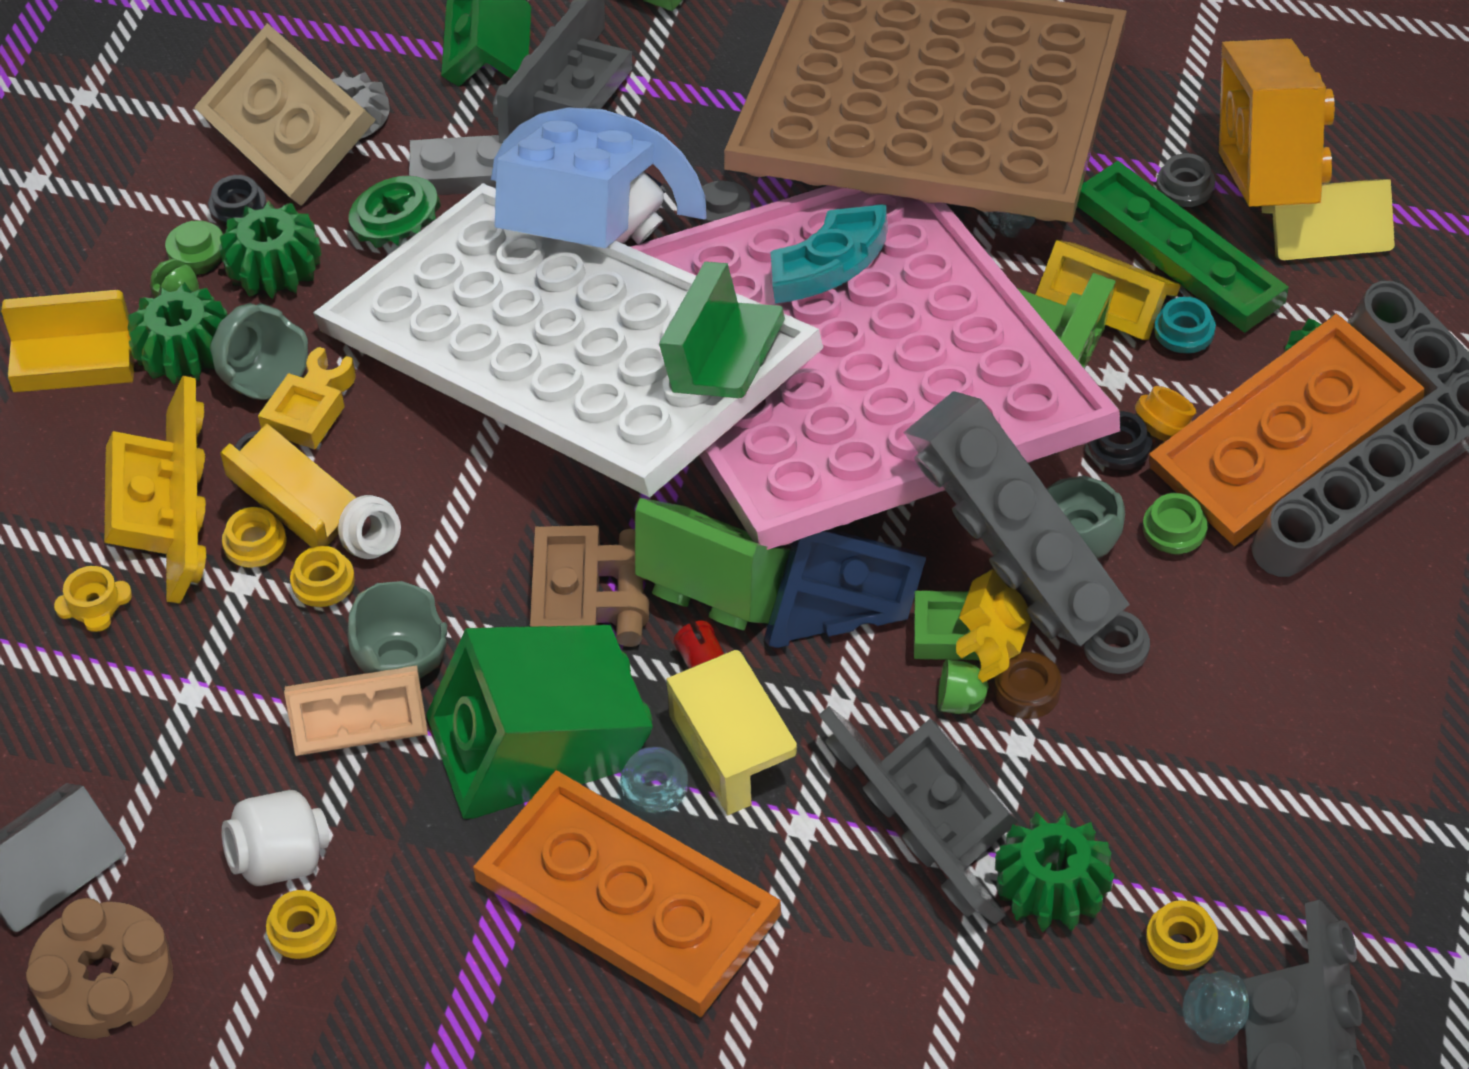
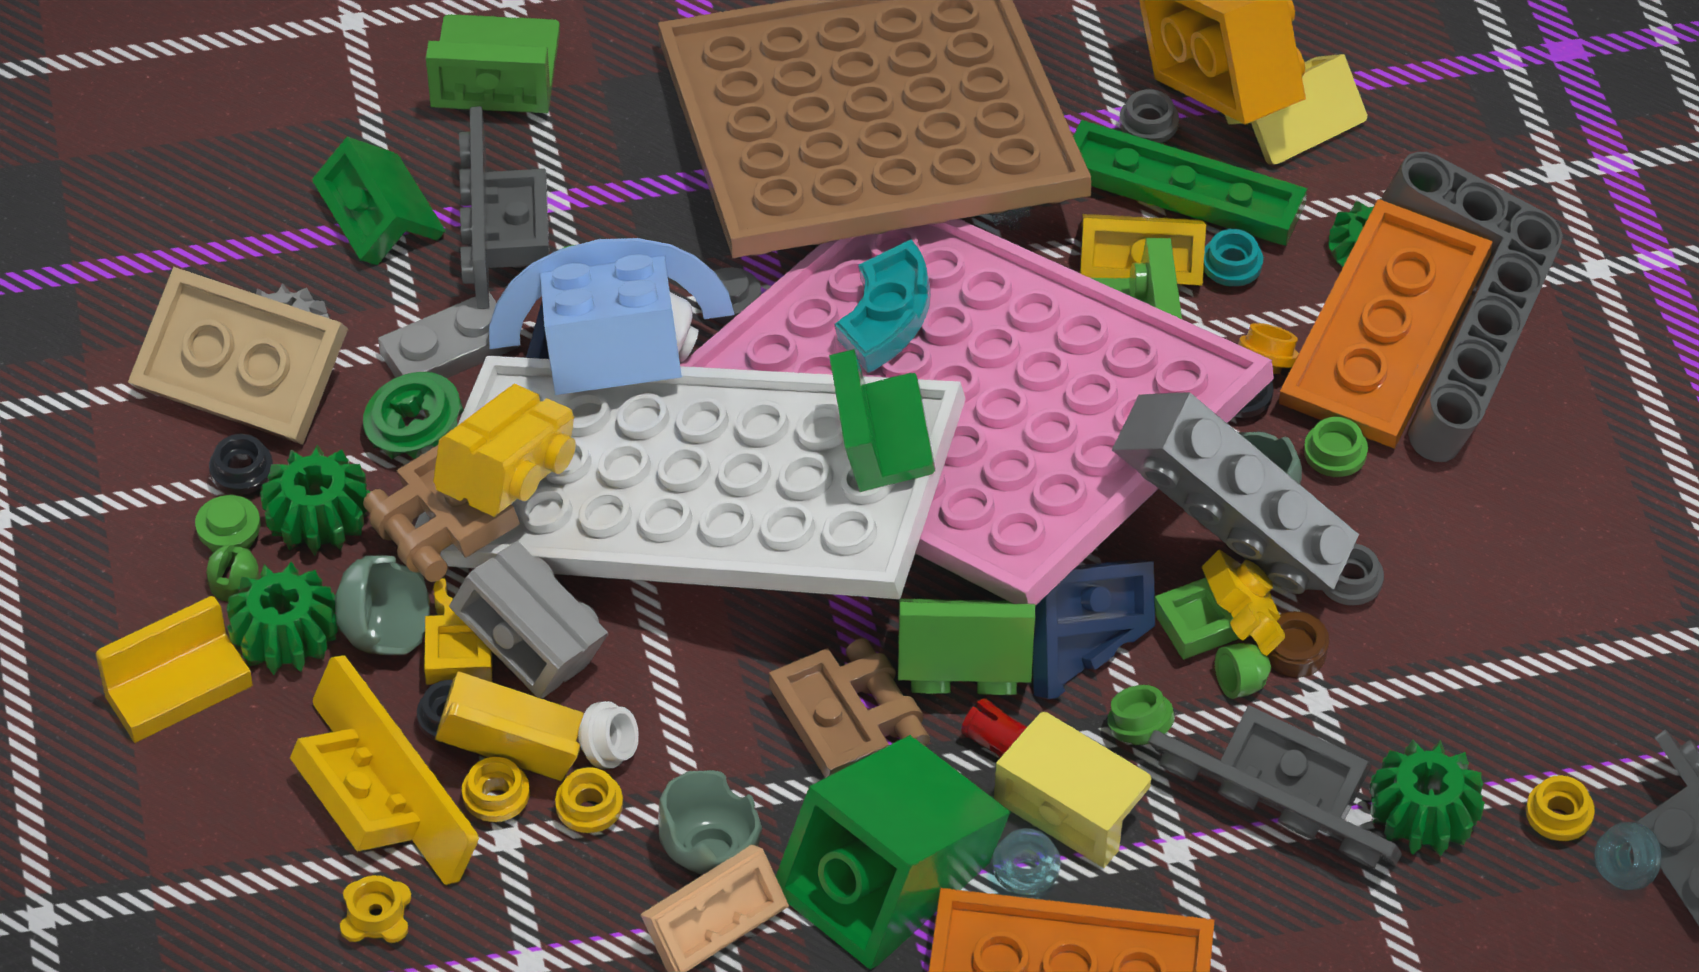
camera: 30 degrees left, 0 degrees up
(361, 404) = (529, 619): none -> light grey brick
(363, 285) = (450, 520): none -> medium nougat plate
(410, 252) = (505, 450): none -> yellow brick
(840, 687) = (1138, 713): none -> bright green plate

